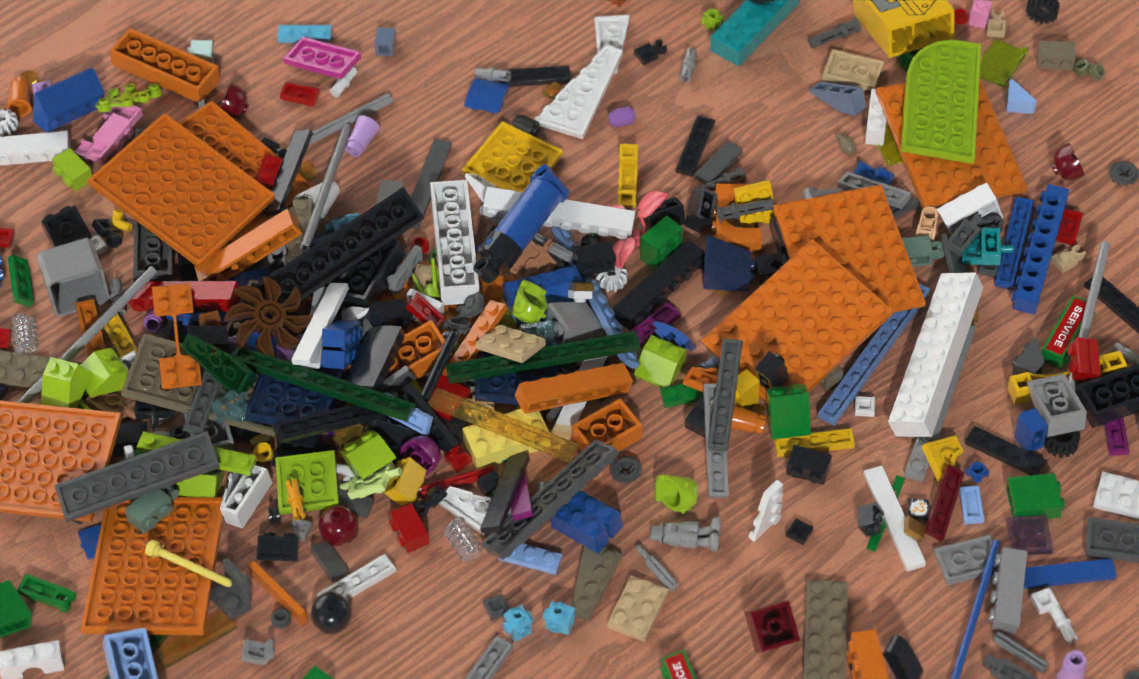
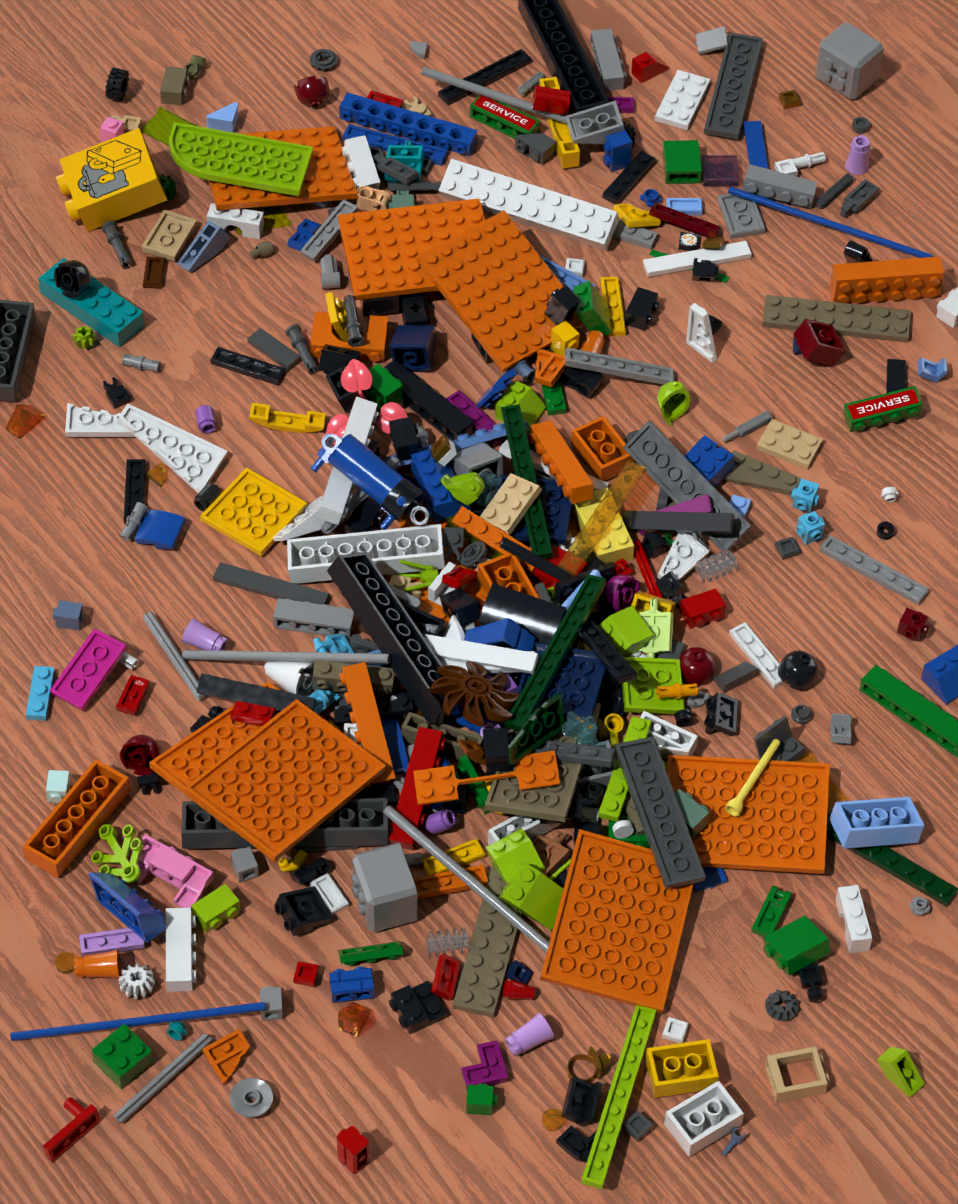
camera: 90 degrees left, 0 degrees up
(277, 592) = (776, 712): orange tile -> none
(688, 533) = (714, 402): light grey piece -> none
(725, 395) = (580, 345): dark grey tile -> none
(805, 65) = (154, 272): none -> reddish brown tile

